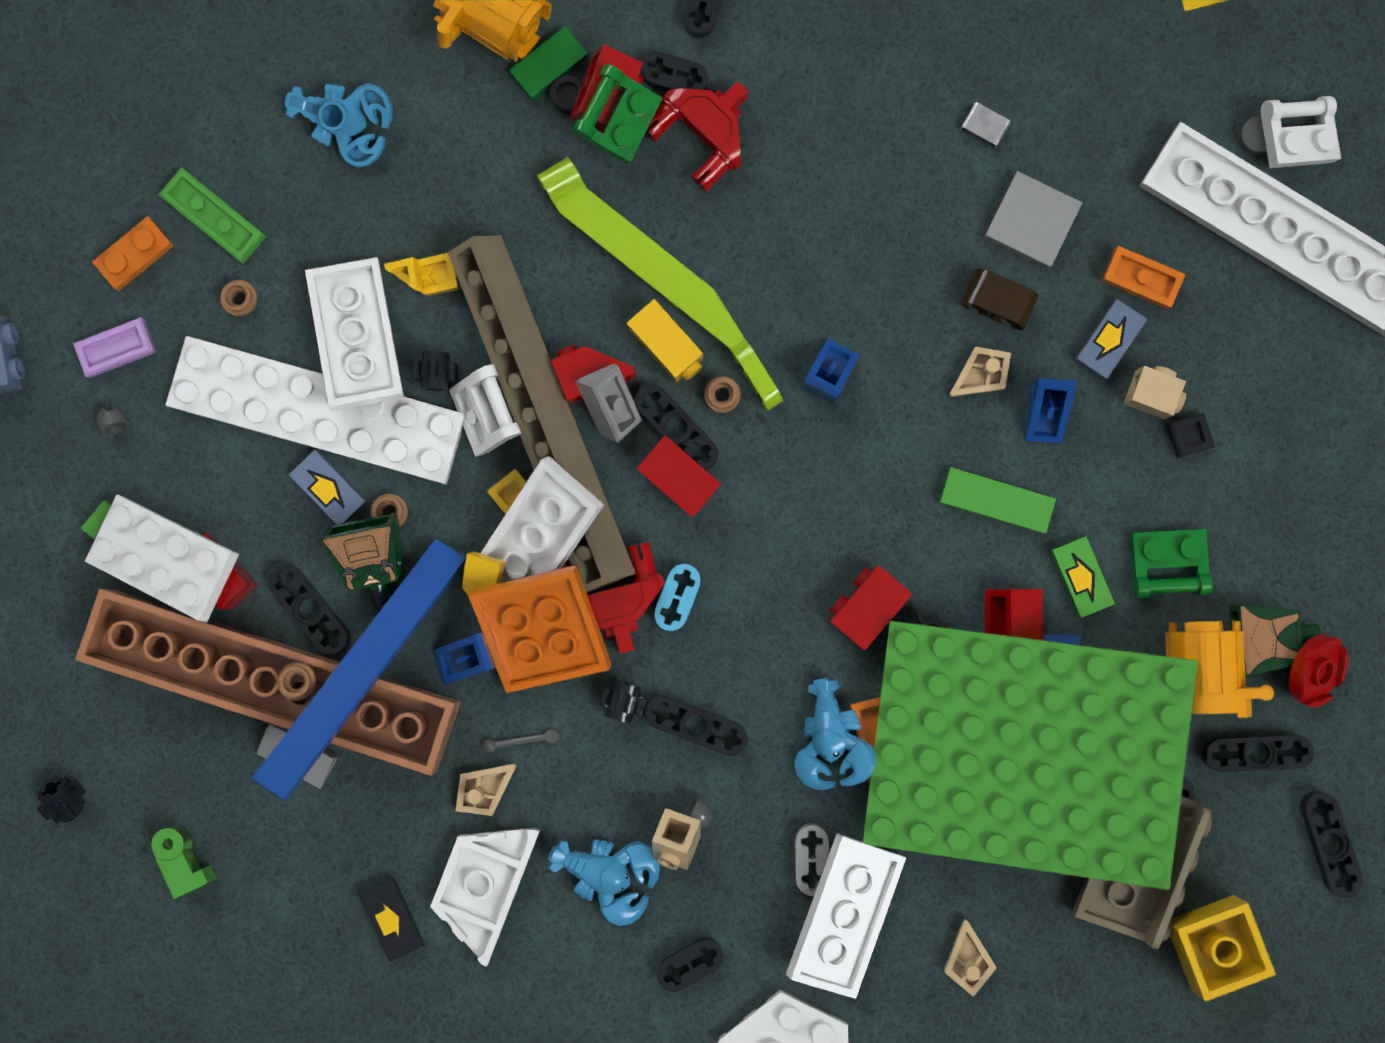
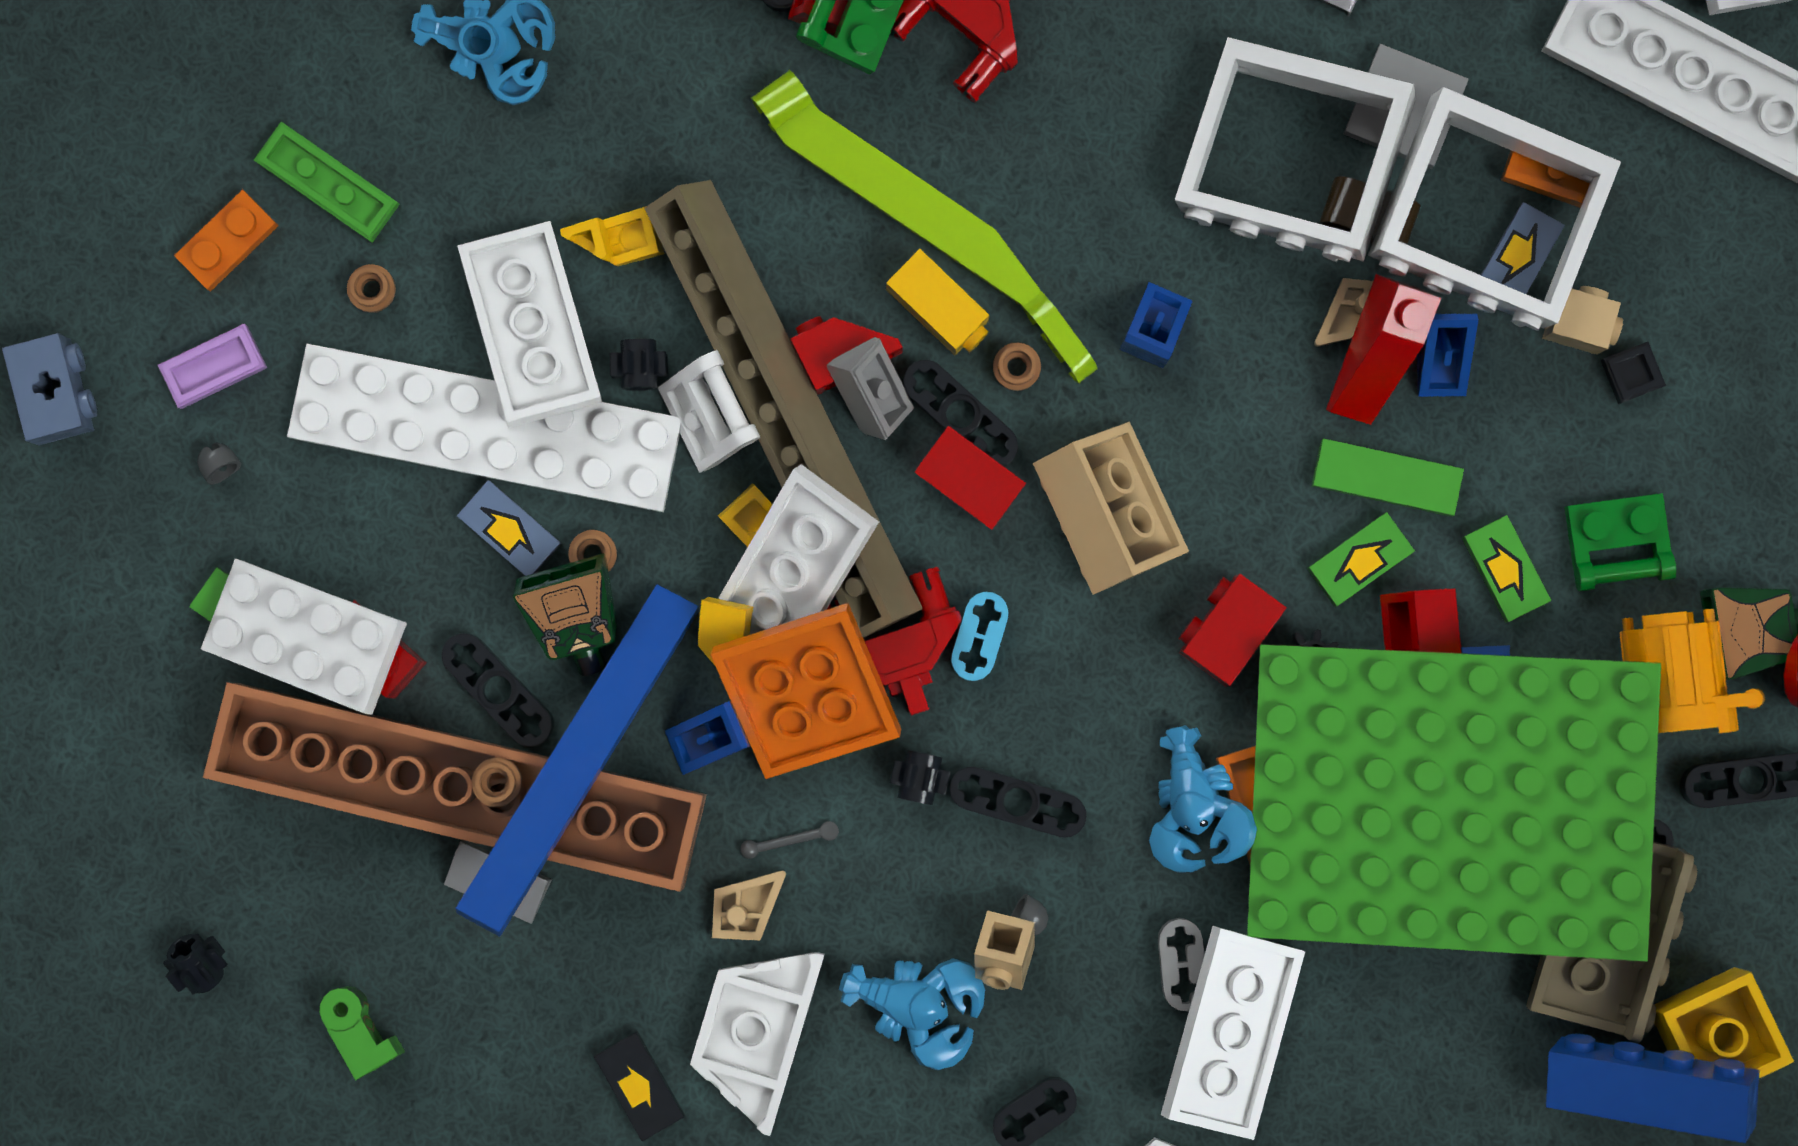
camera: 10 degrees left, 0 degrees up
(784, 506) = (1110, 507): none -> tan slope
(966, 191) = (1316, 76): none -> white window
(969, 961) = (1397, 1079): tan piece -> none
(972, 561) = (1360, 559): none -> bright green tile
(1001, 401) = (1382, 347): none -> red slope
(1121, 250) = (1522, 138): none -> white window
(1166, 986) = (1653, 1087): none -> blue brick

